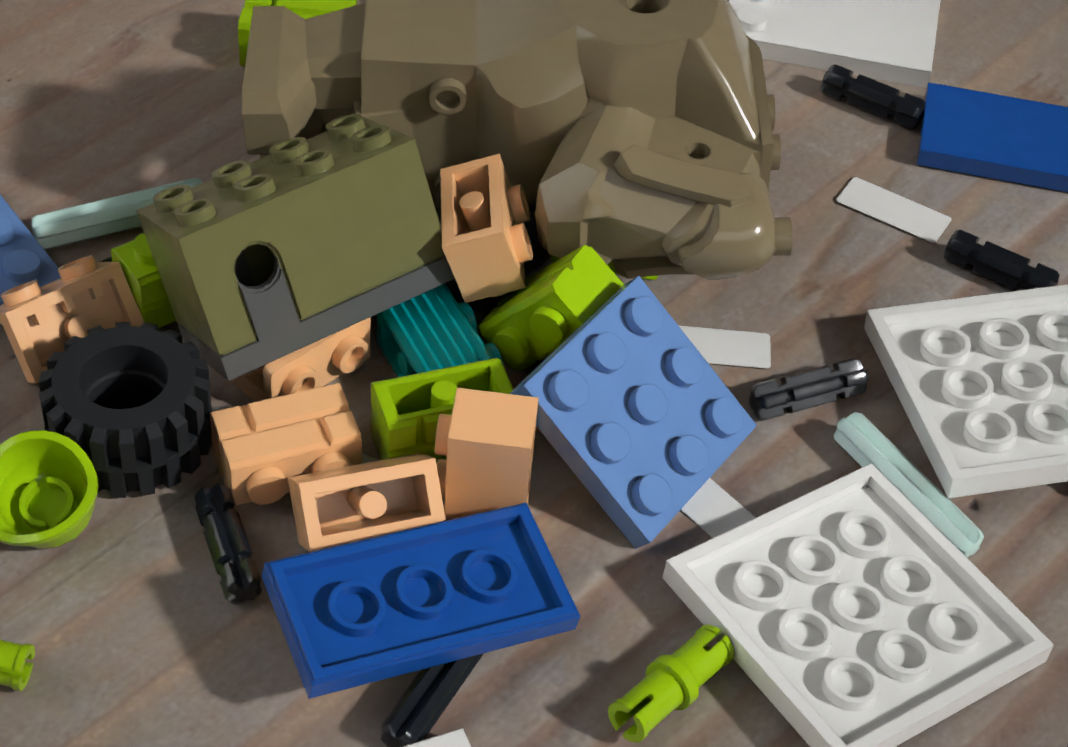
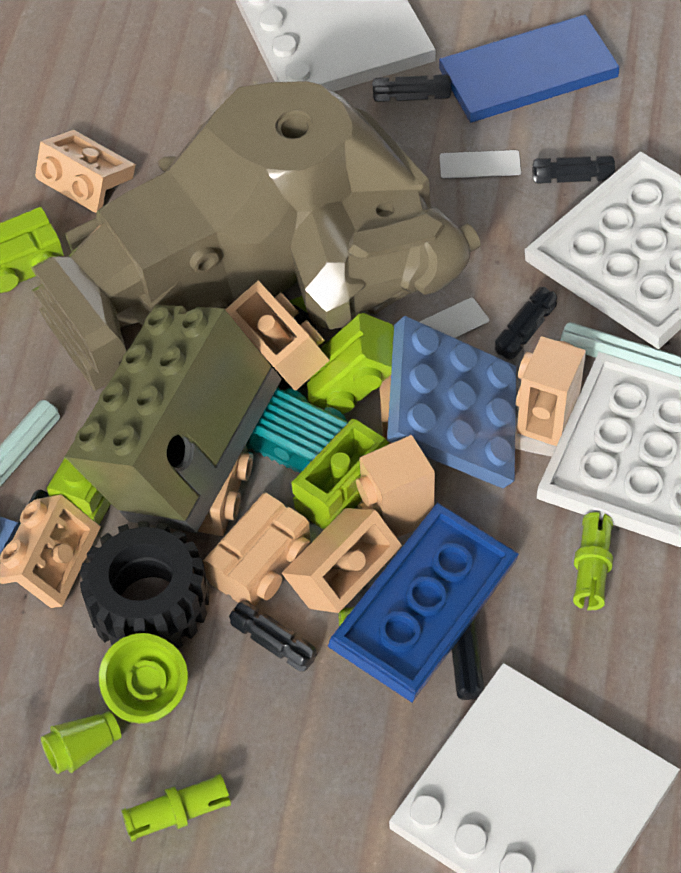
camera: 25 degrees left, 10 degrees up
(763, 454) = (548, 389): none -> light nougat brick

